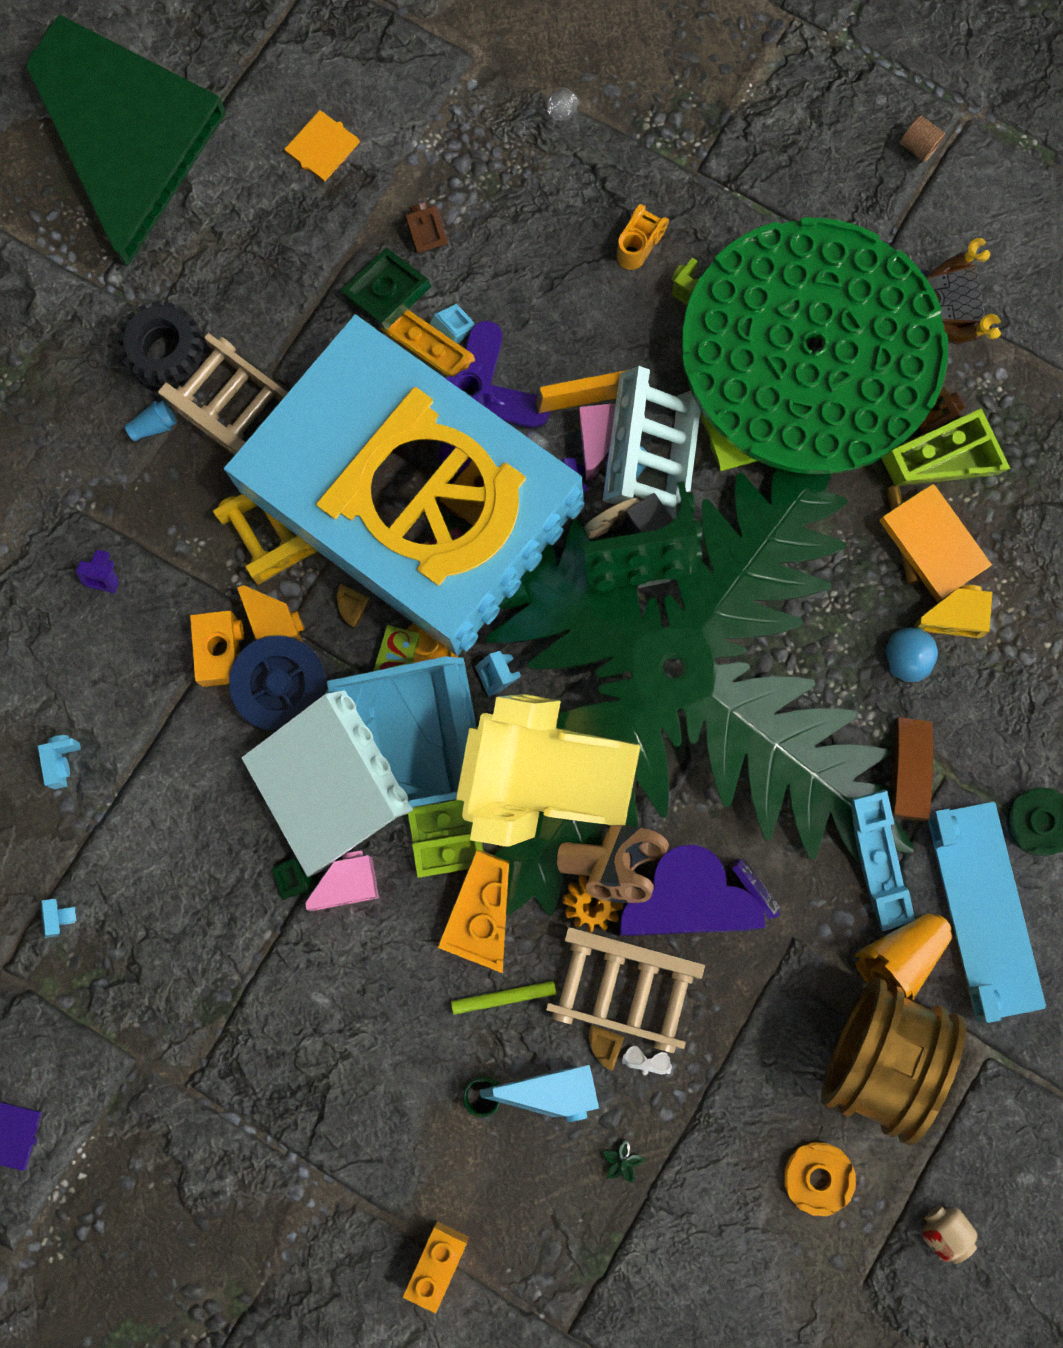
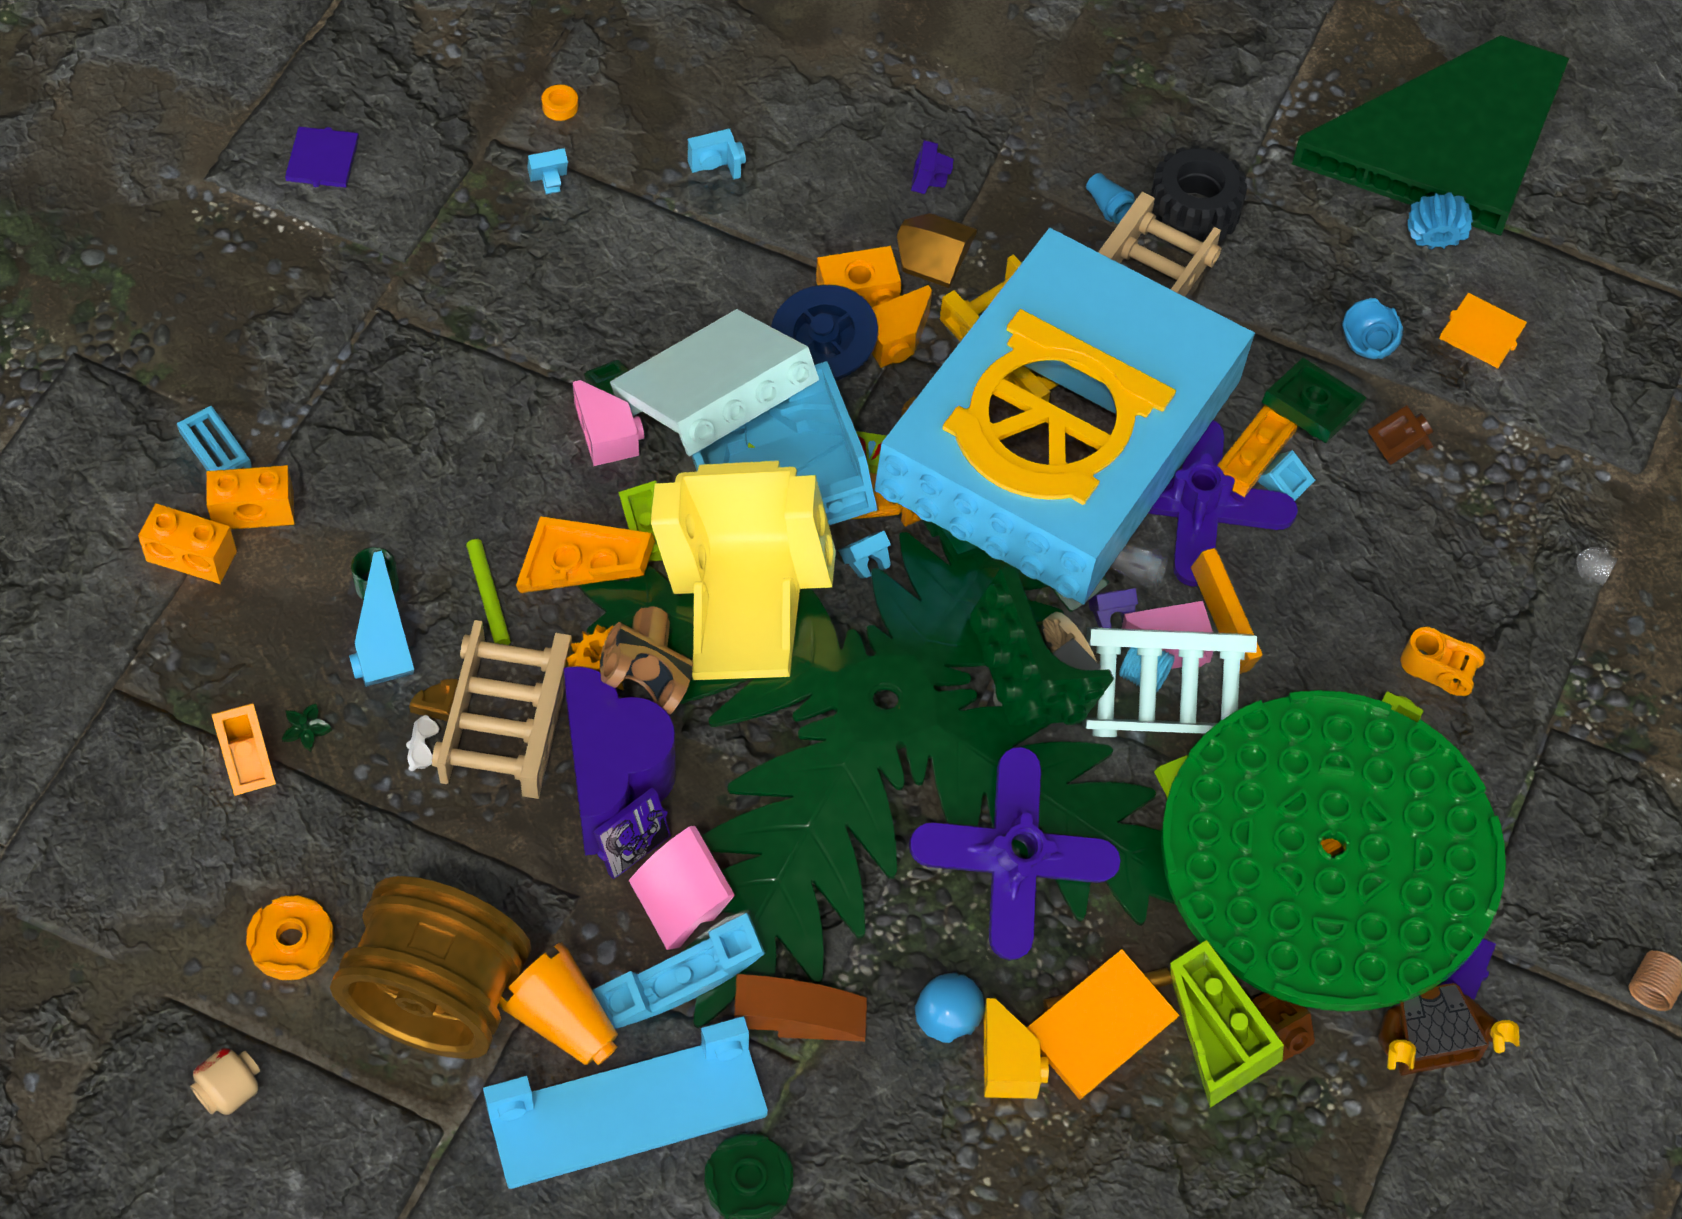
camera: 75 degrees right, 20 degrees down
(182, 579) = (933, 247): none -> pearl gold slope
(217, 154) = (1440, 220): none -> dark azure gear
(321, 229) = (1372, 329): none -> dark azure hair
(351, 1226) = (195, 420): none -> medium azure tile
(393, 1208) = (251, 497): none -> light orange brick
(653, 1216) = (243, 749): none -> light orange slope
(807, 584) = (991, 852): none -> dark purple piece
(808, 852) = (681, 887): none -> bright pink slope

